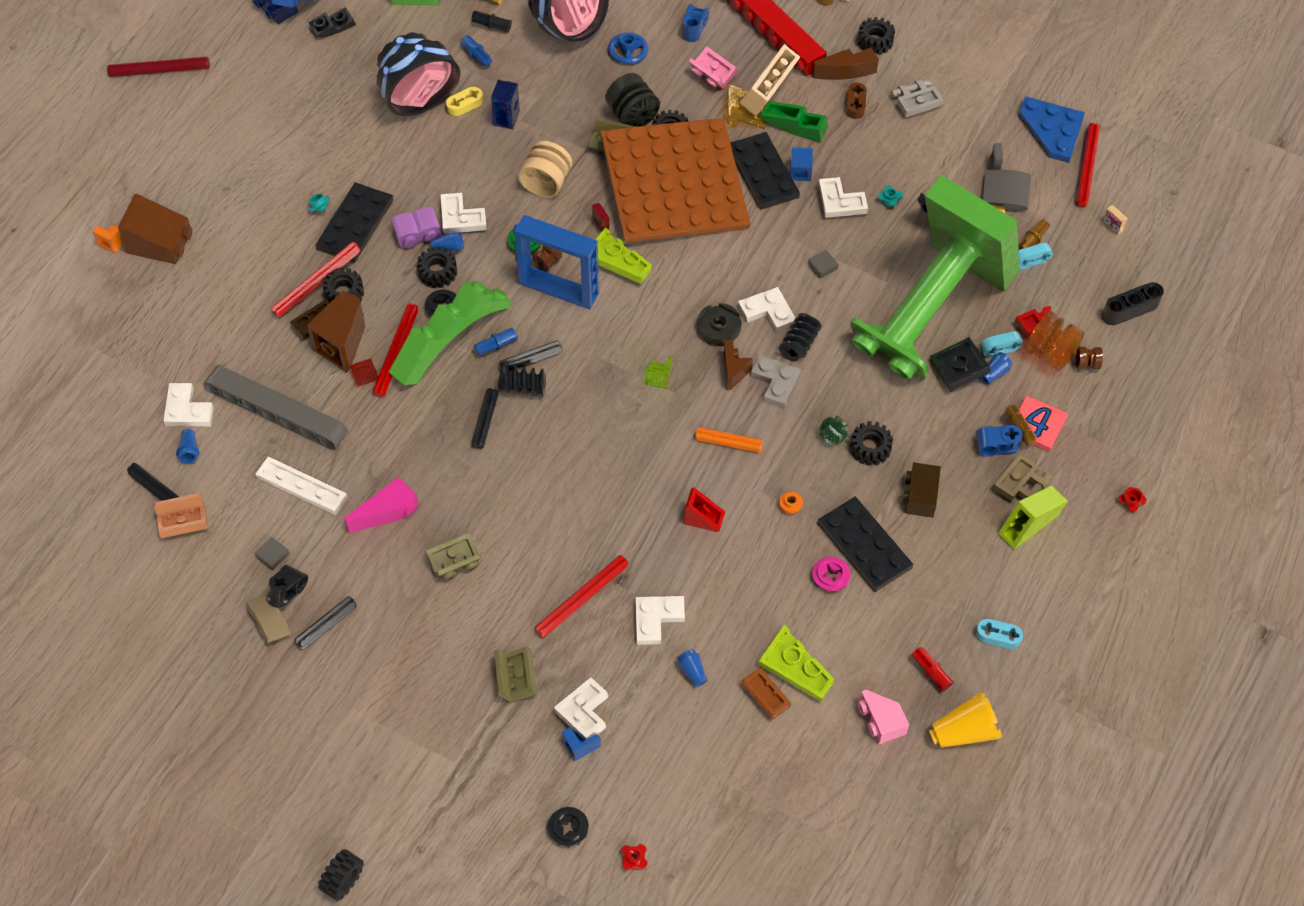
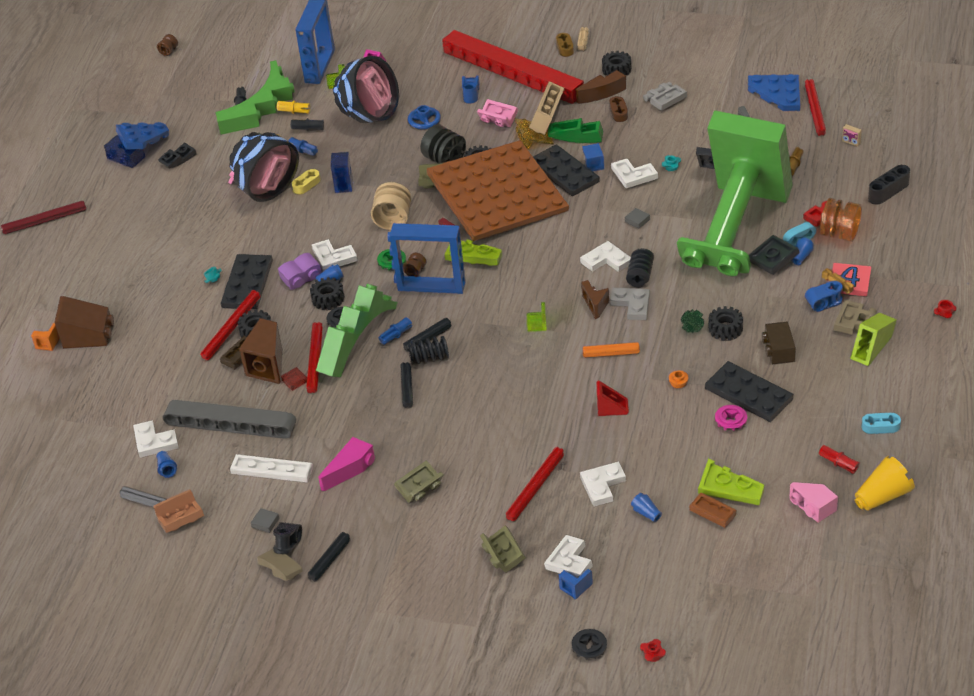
camera: 10 degrees left, 15 degrees down
(714, 334) = (563, 278): pearl dark grey plate -> none
(1034, 255) = (801, 172): medium azure beam -> none
(1089, 357) = (871, 226): reddish brown wheel -> none

